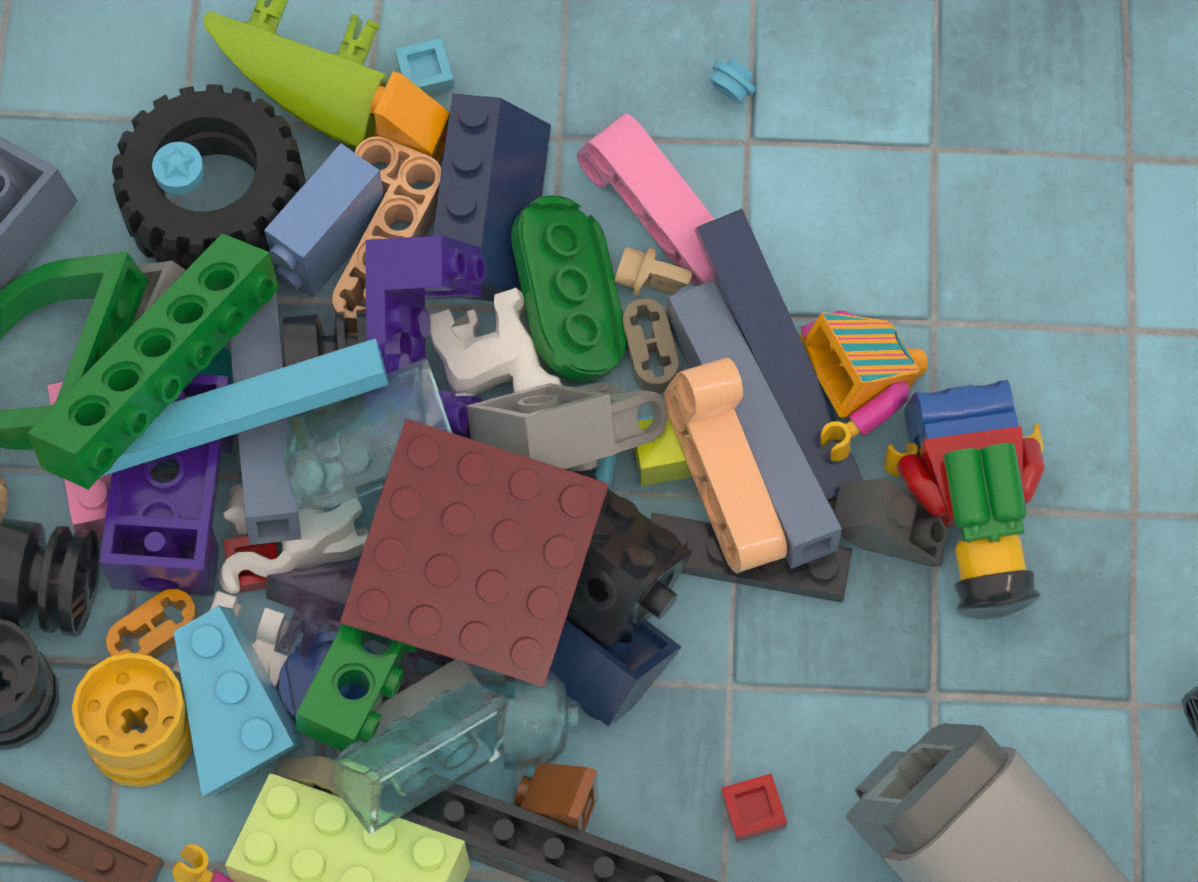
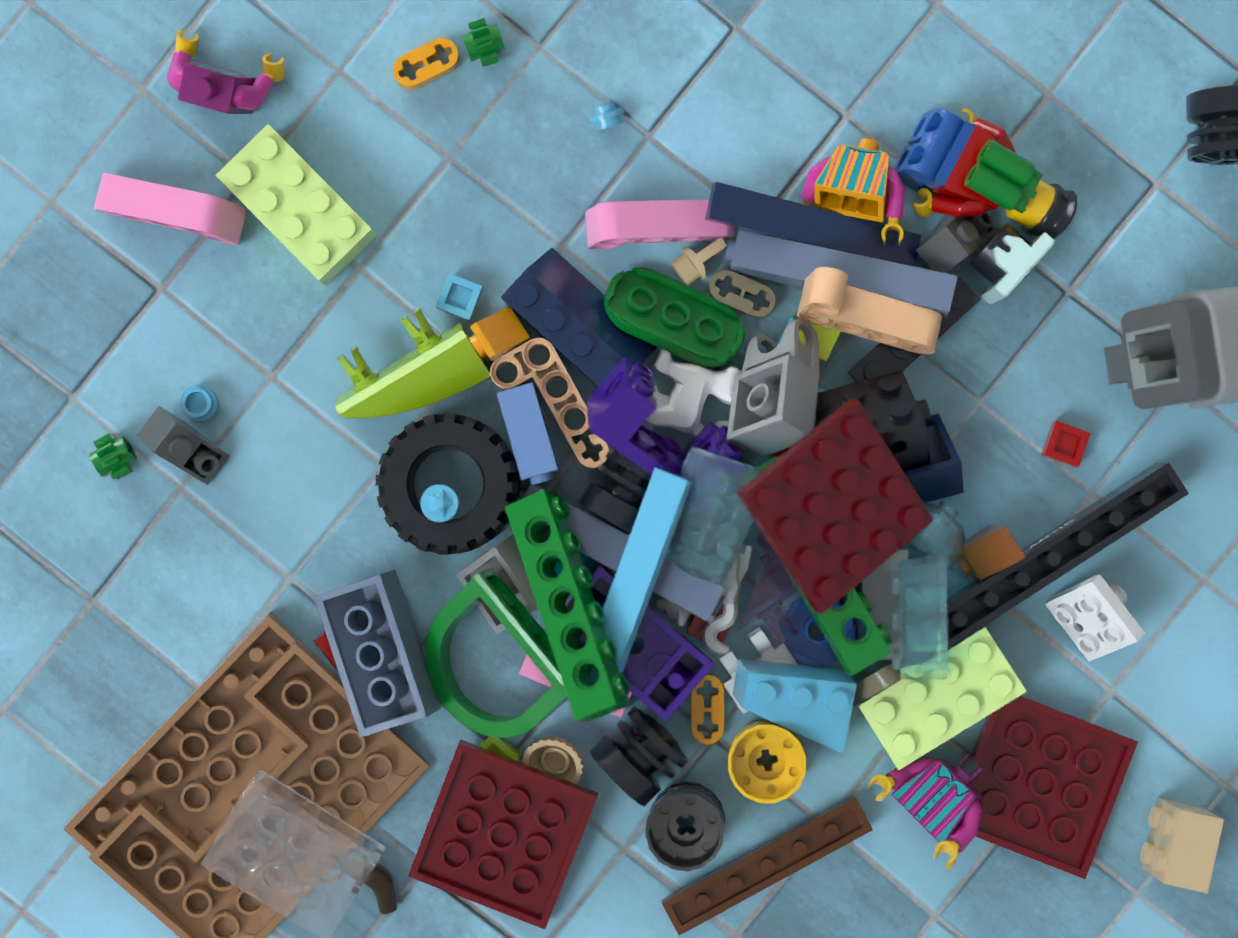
camera: 55 degrees left, 20 degrees up
(905, 579) = (1008, 260): none -> light aqua piece

